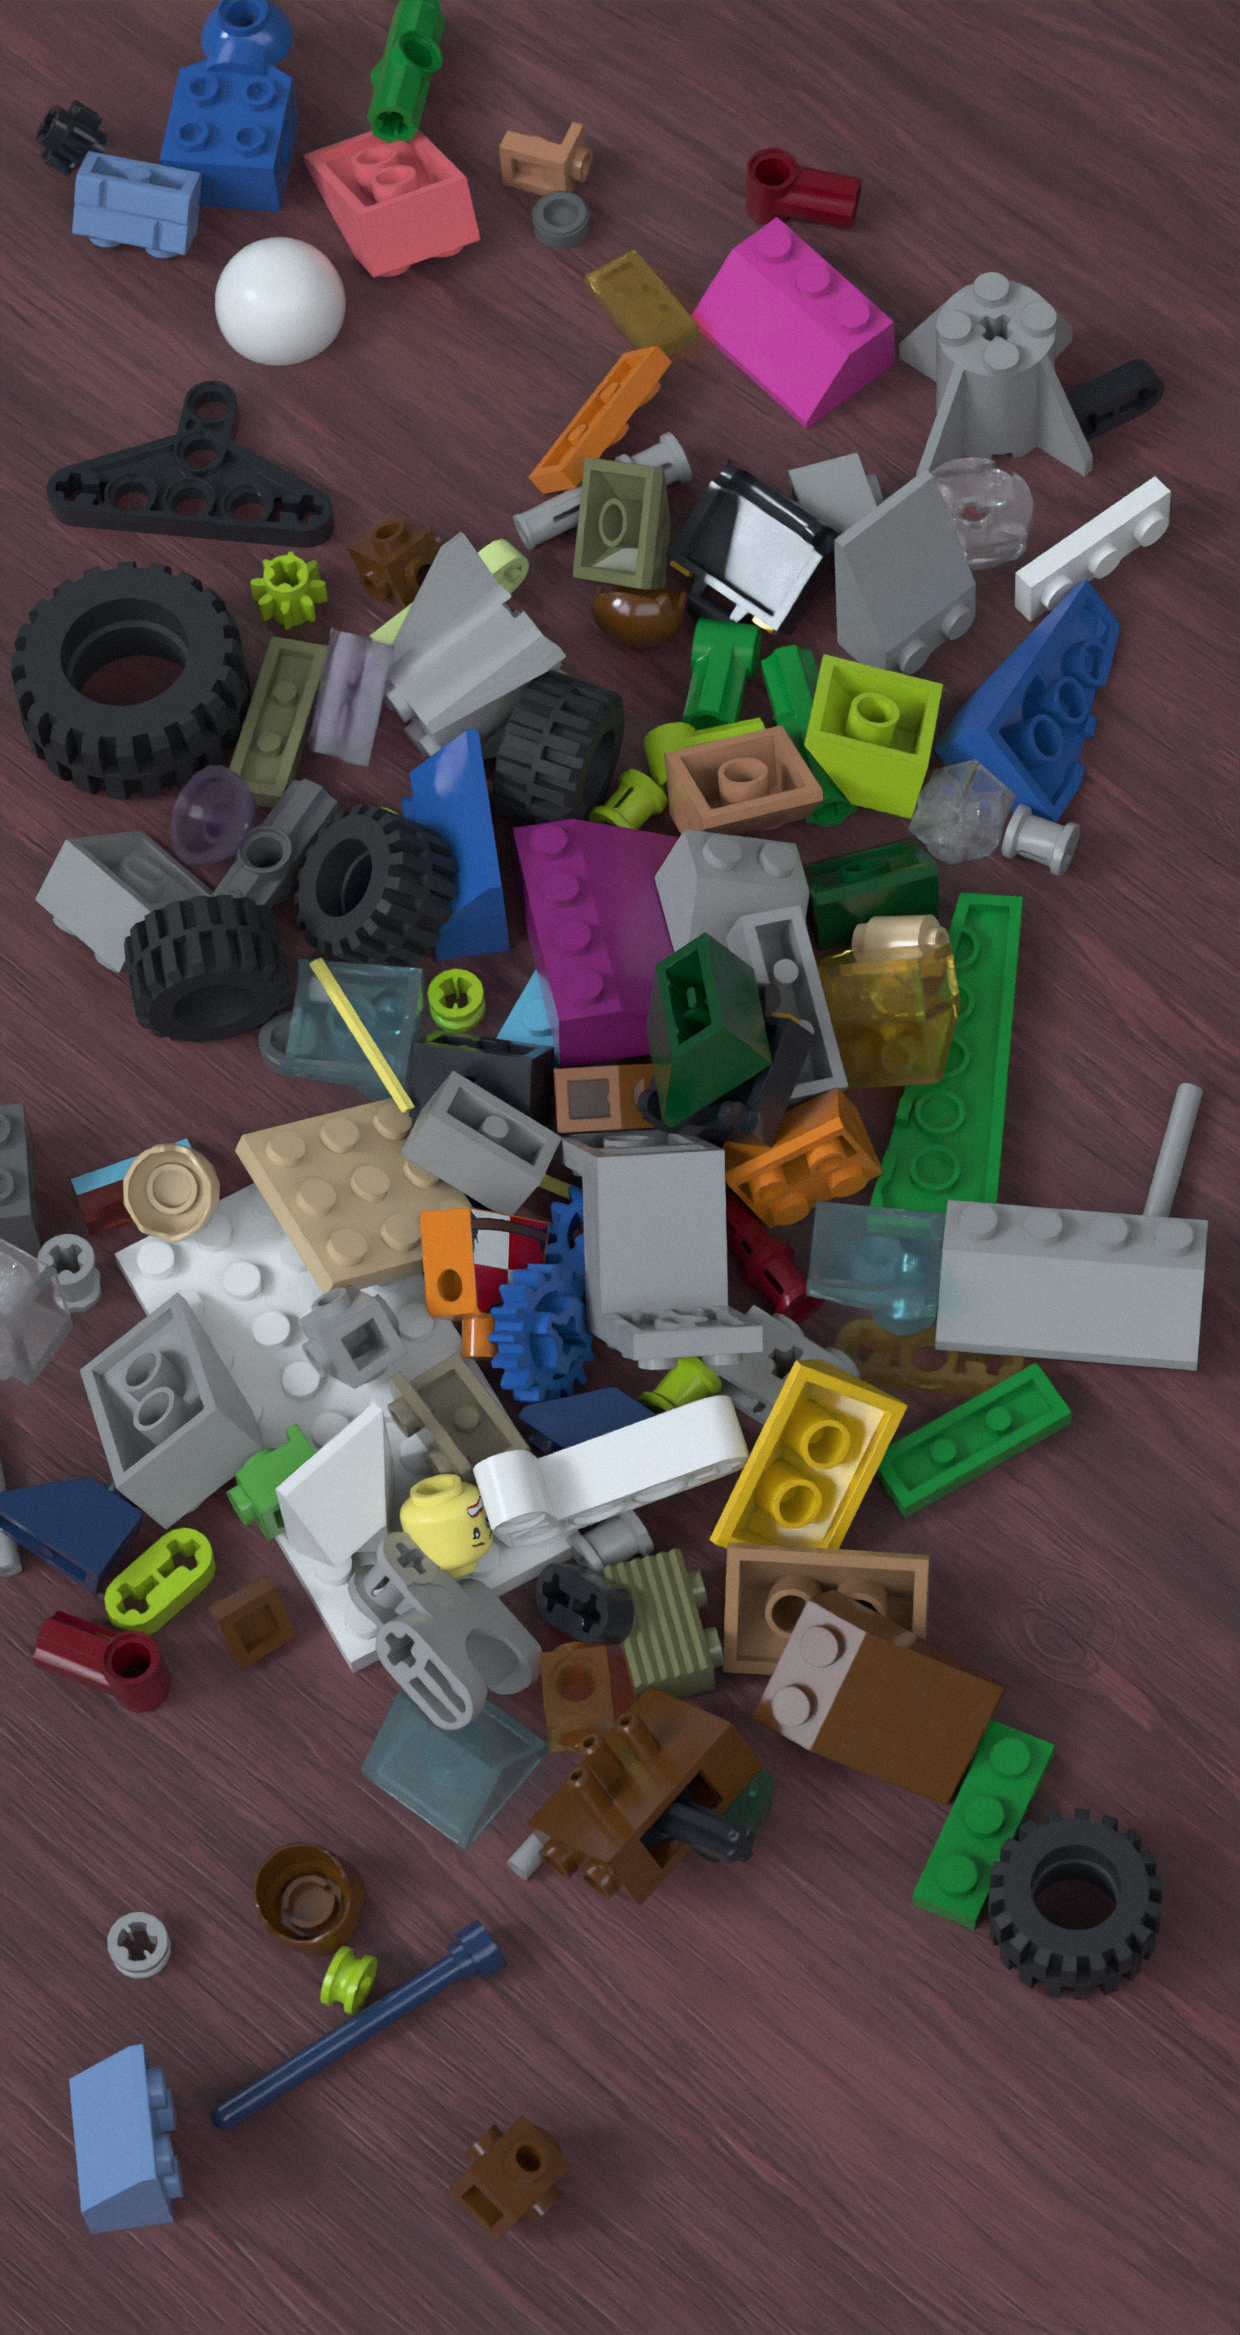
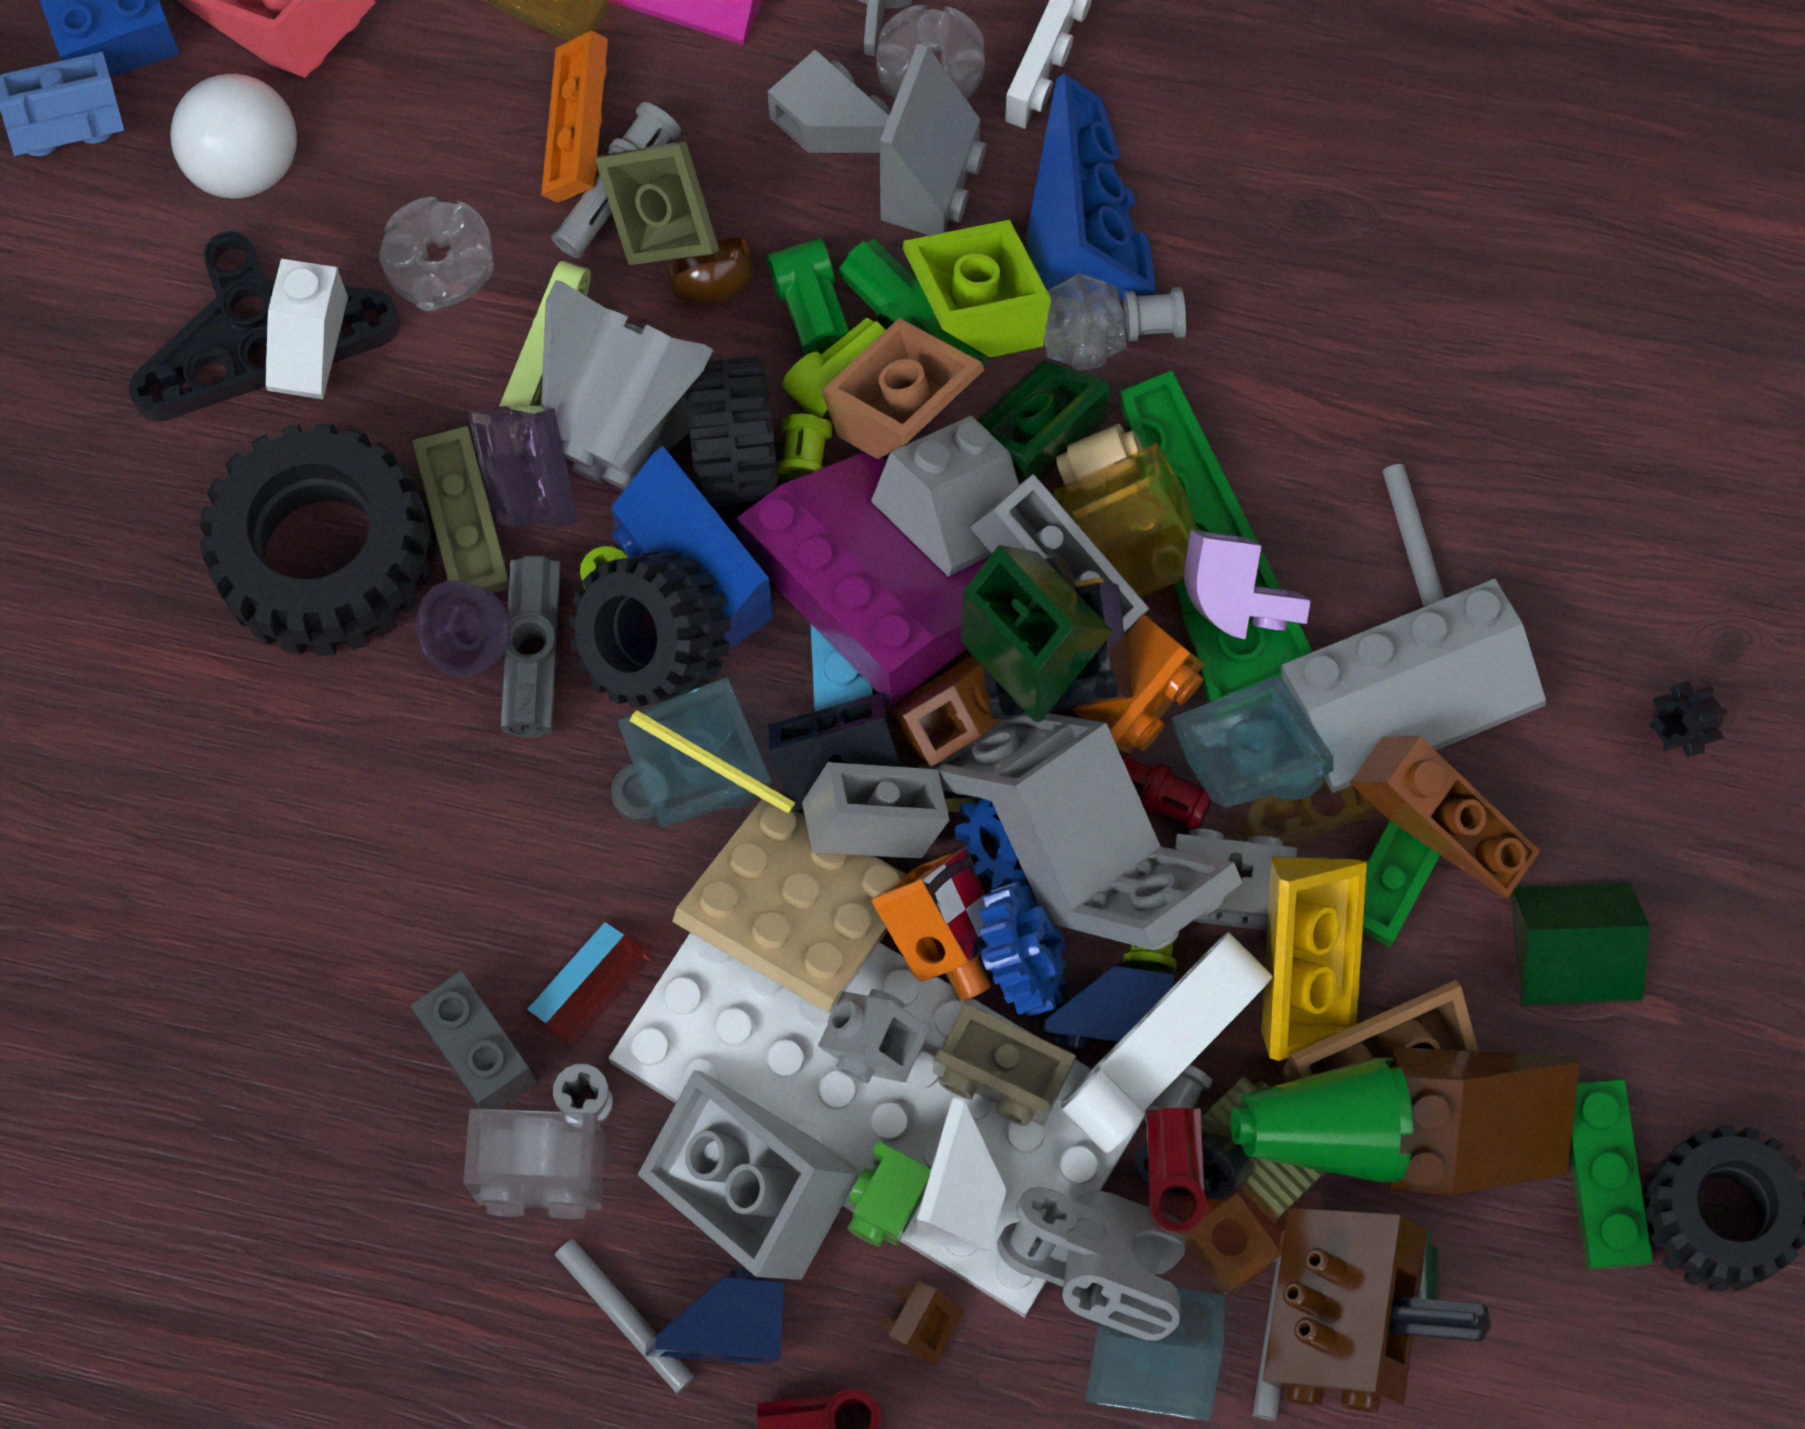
camera: 35 degrees left, 10 degrees up
(109, 885) = (427, 736): light grey slope -> none
(156, 1578) = (807, 1323): lime beam -> none
(171, 1192) = (640, 986): tan hair -> none
(207, 968) = (547, 769): black tyre -> none
(232, 490) = (303, 327): none -> white slope
(289, 590) = (407, 404): lime gear -> none
(394, 558) = (484, 322): reddish brown brick -> none
(396, 454) = (432, 282): none -> clear plate
(448, 1523) = (1052, 1158): light yellow head -> none
(456, 982) = (776, 680): lime bush -> none
(554, 1582) = (1175, 1162): none -> dark red piece
(718, 1612) = (1331, 1121): none -> green cone
(754, 550) = (778, 174): black piece -> none
(928, 1103) = (1223, 590): none -> lavender brick
(1024, 1412) = (1444, 811): none -> dark orange slope
(1089, 1605) = (1579, 944): none -> dark green slope

